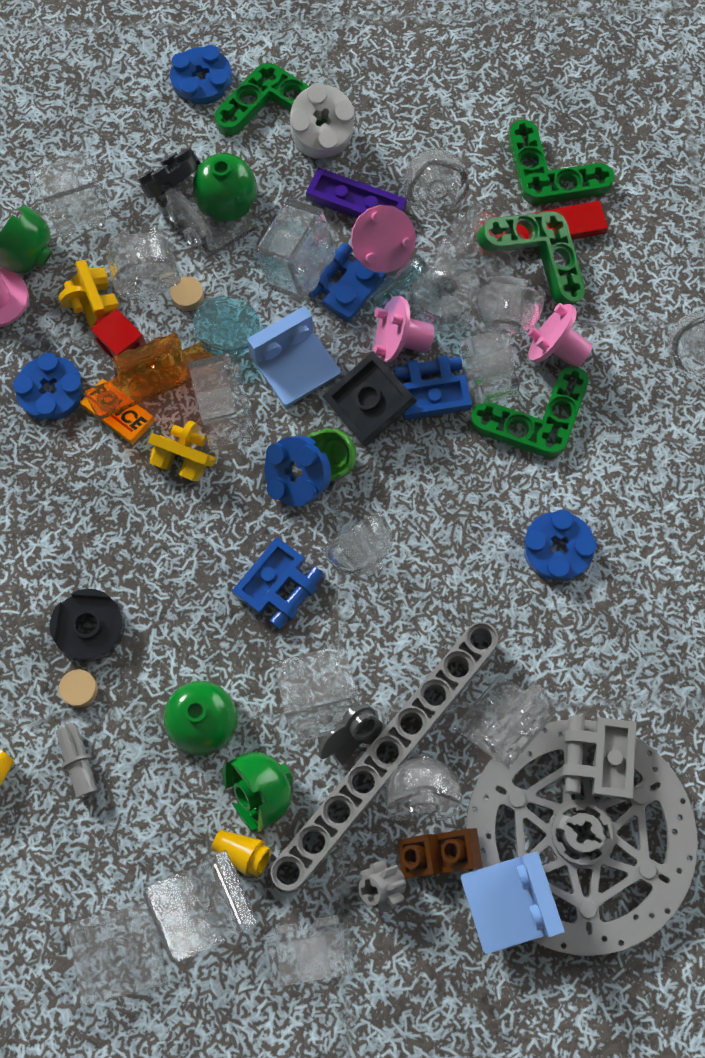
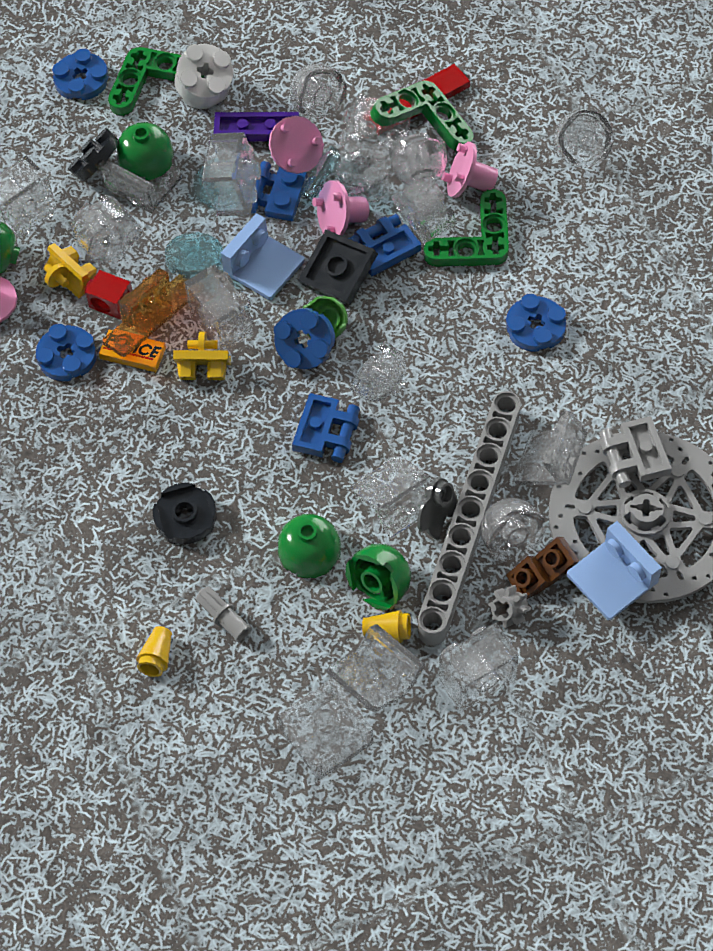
camera: 20 degrees left, 10 degrees down
(78, 688) = (198, 562): tan tile -> none
(187, 294) = (149, 244): tan tile -> none
(542, 176) = (400, 61): green beam -> none

